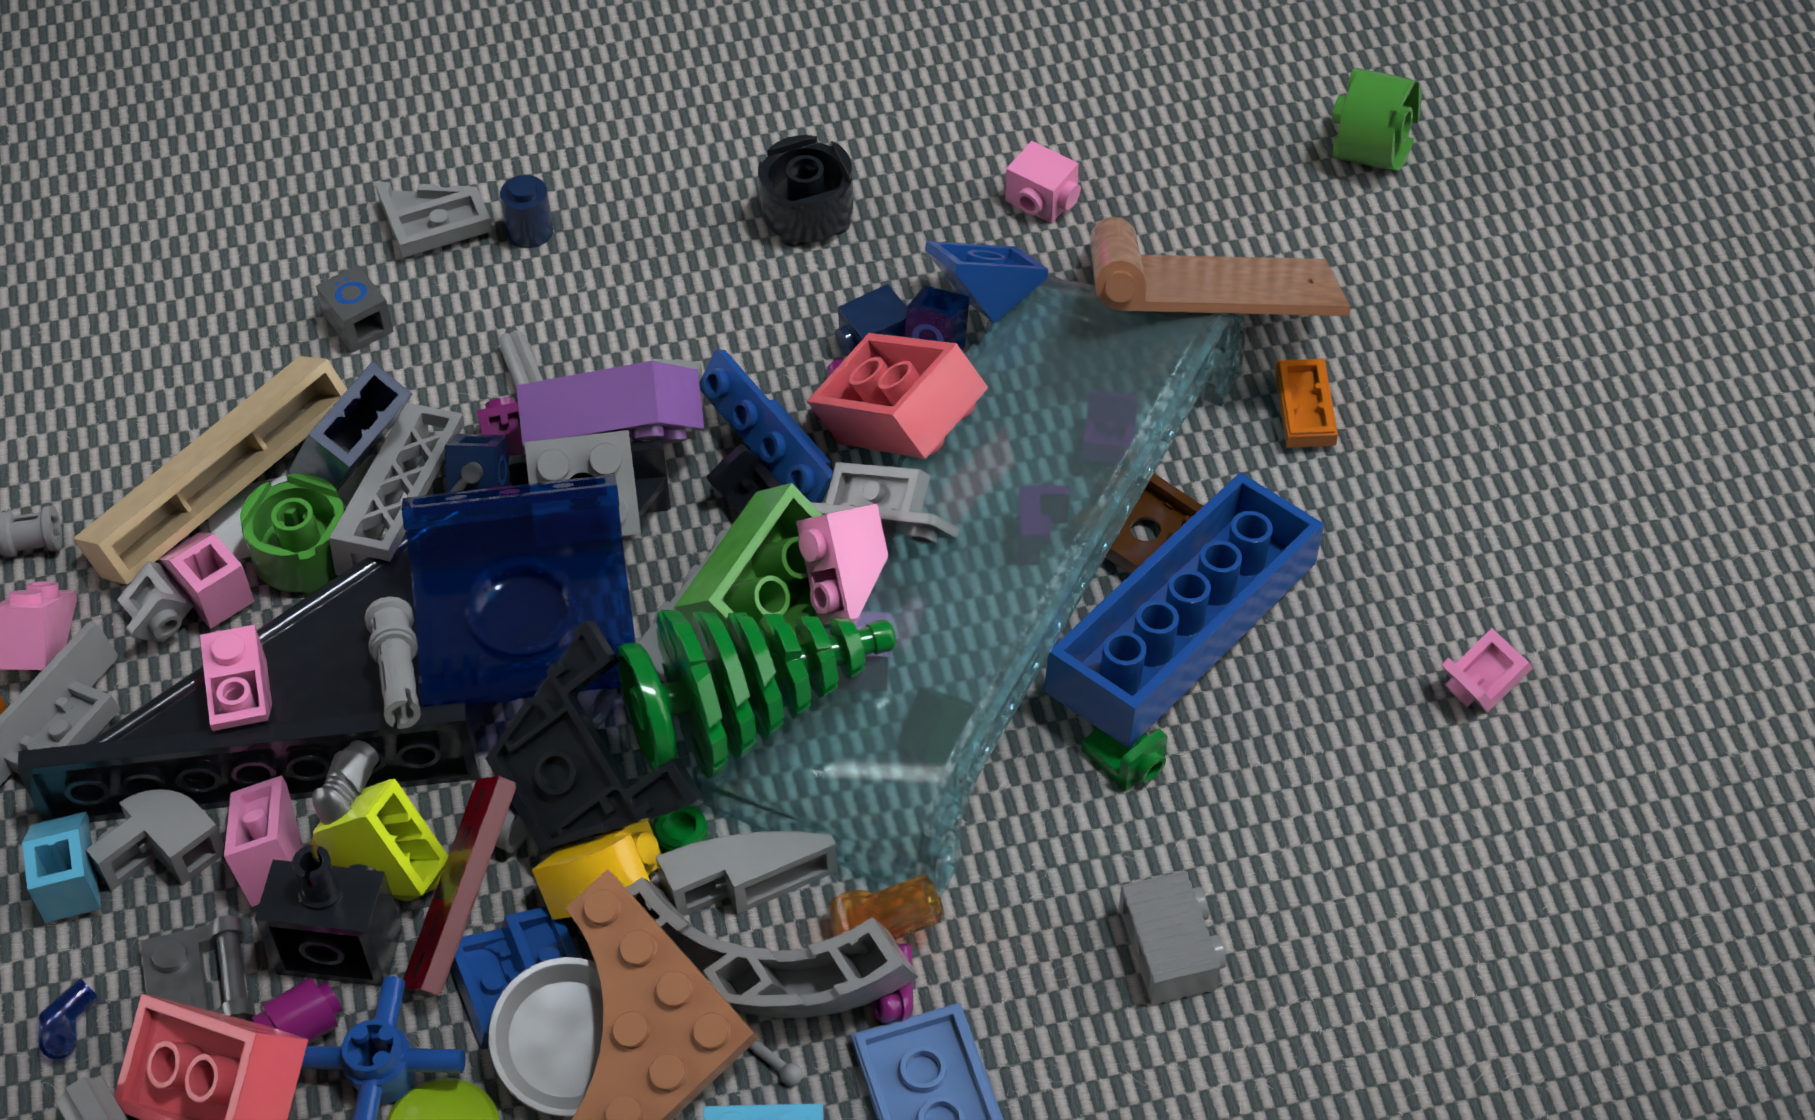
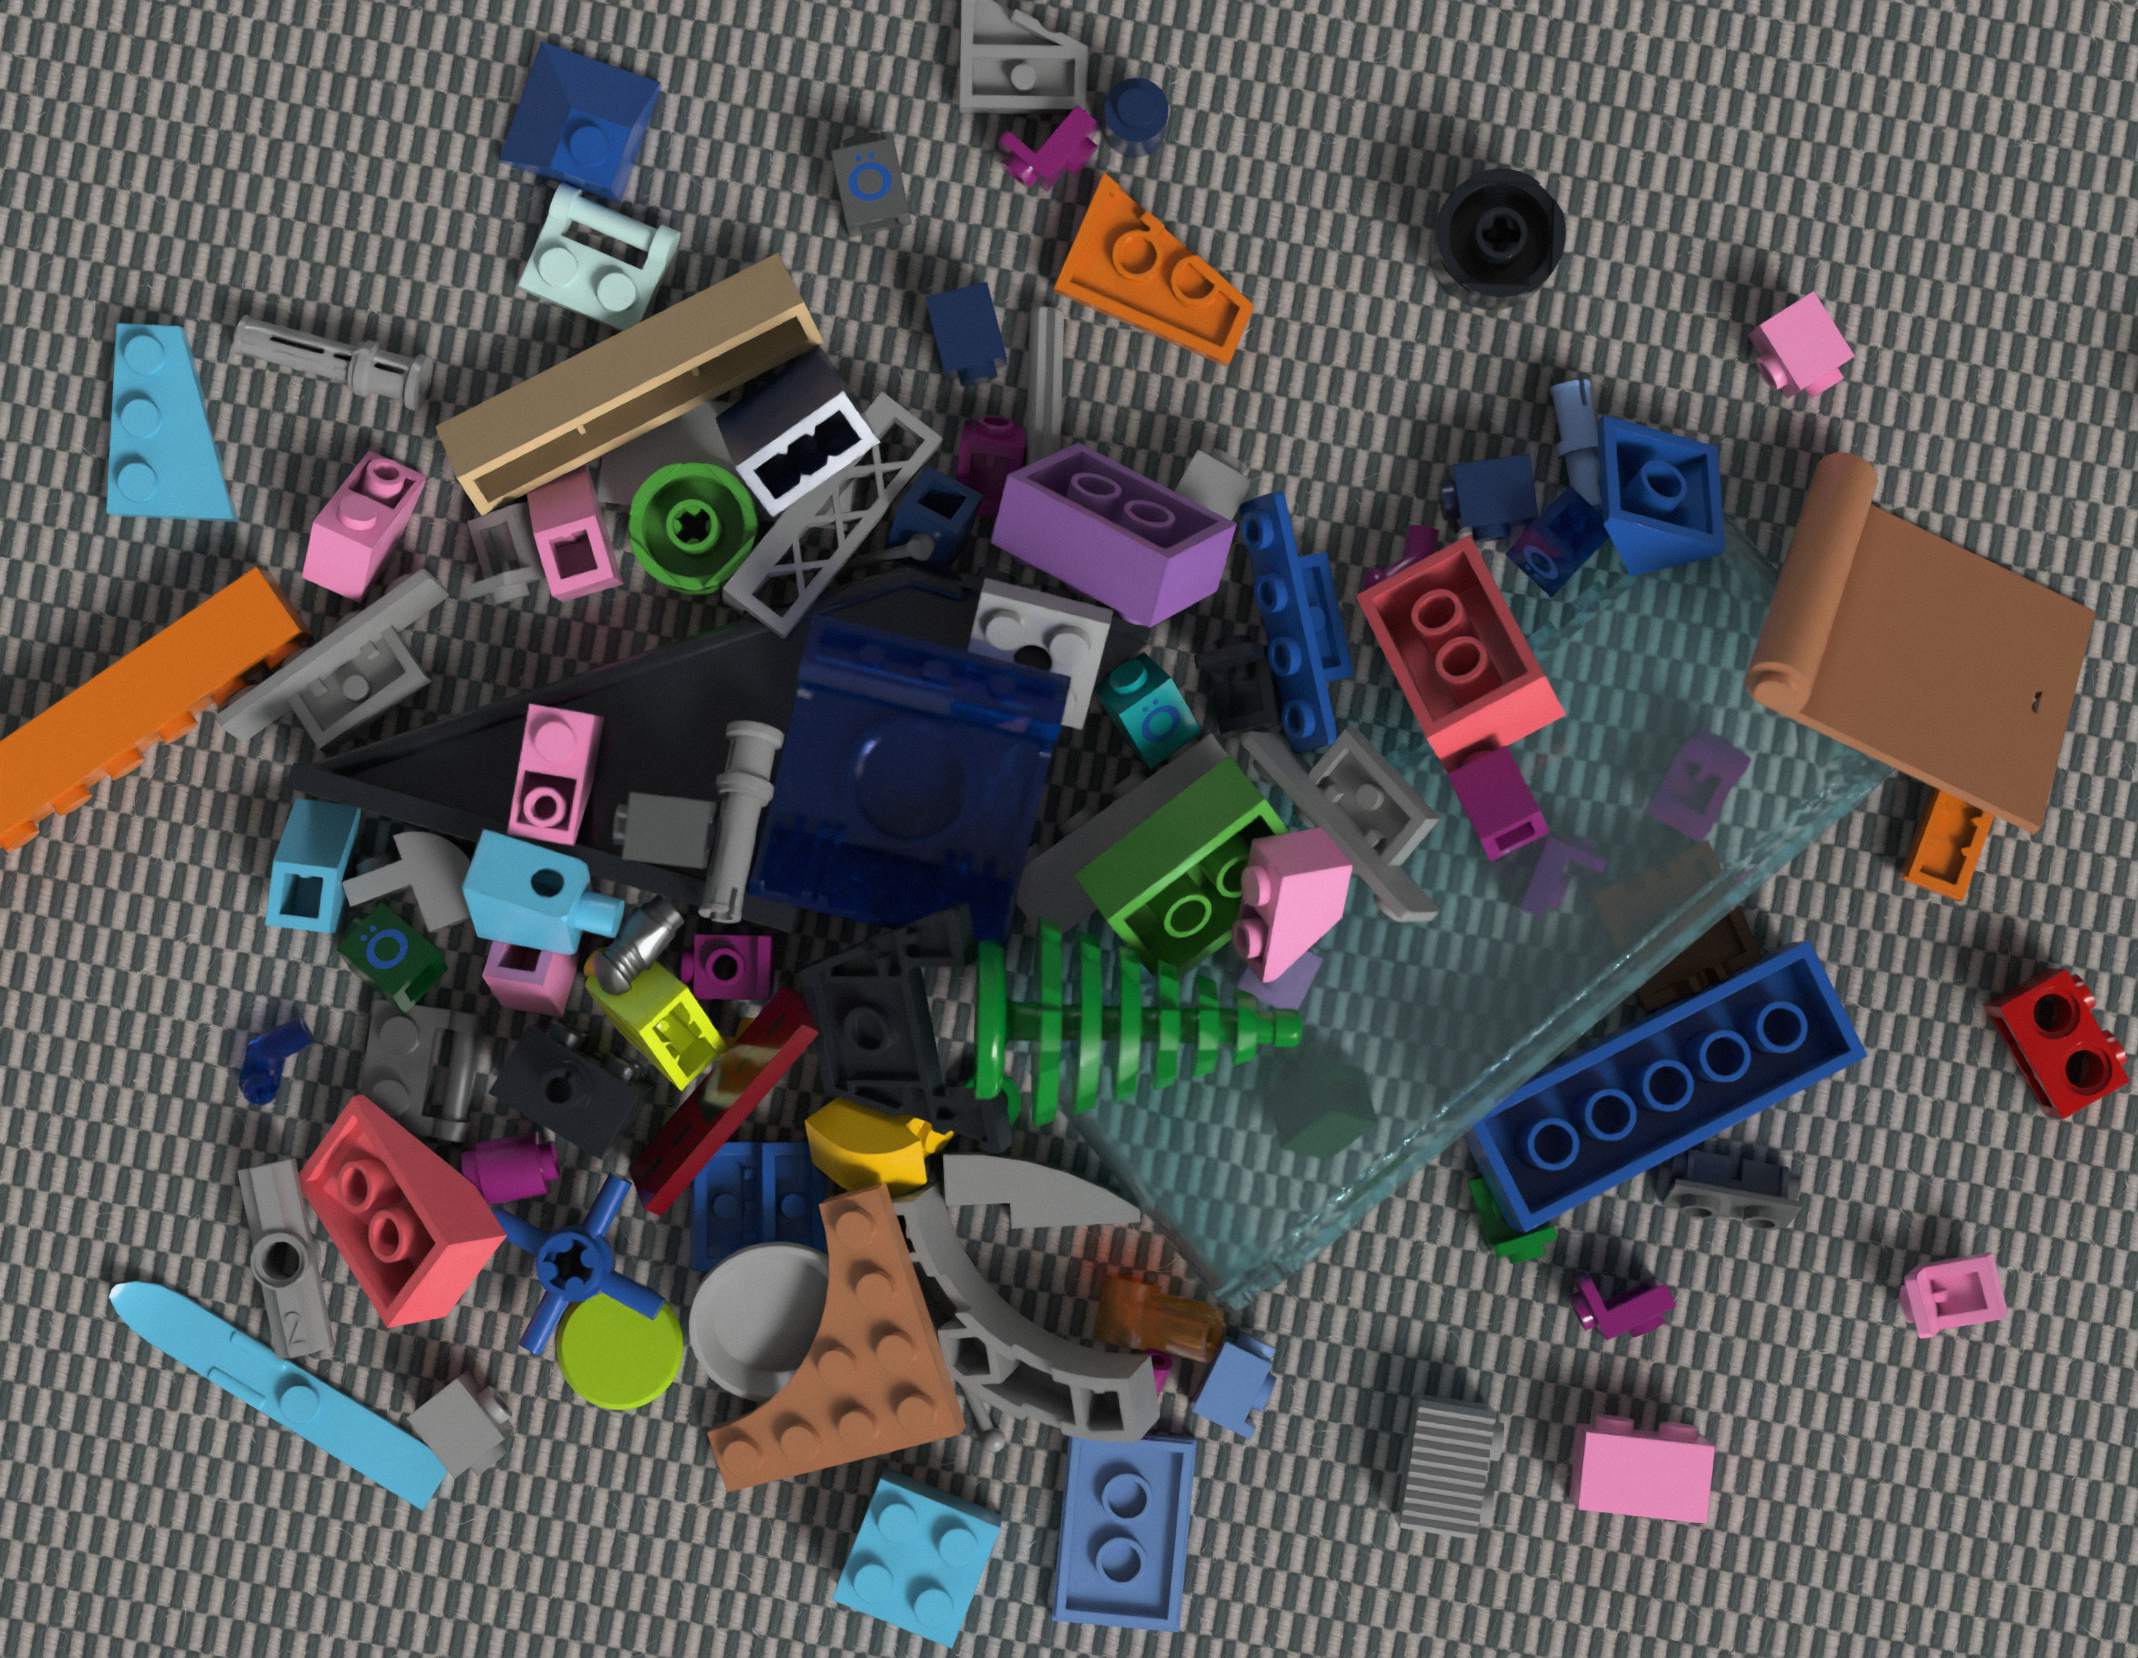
camera: 20 degrees right, 35 degrees up
(128, 352) = (580, 122): none -> blue slope
(146, 896) = (391, 957): none -> dark green brick
(164, 433) = (589, 279): none -> light aqua plate
(247, 772) = (535, 896): none -> medium azure torso
(338, 673) = (667, 829): none -> dark grey brick
(439, 800) = (755, 966): none -> magenta brick
(456, 363) = (967, 334): none -> dark blue brick
(477, 253) = (1065, 150): none -> magenta bracket
(571, 297) = (1148, 279): none -> orange wing
(685, 521) = (1147, 709): none -> teal brick
(913, 271) = (1578, 438): none -> light blue pin
(967, 448) = (1497, 801): none -> magenta brick
(970, 945) = (1236, 1383): none -> medium blue brick
(1238, 784) = (1633, 1310): none -> magenta bracket
(1284, 676) = (1761, 1197): none -> dark grey hinge
(1325, 880) = (1642, 1470): none -> bright pink brick
(1457, 493) = (2044, 1053): none -> red brick

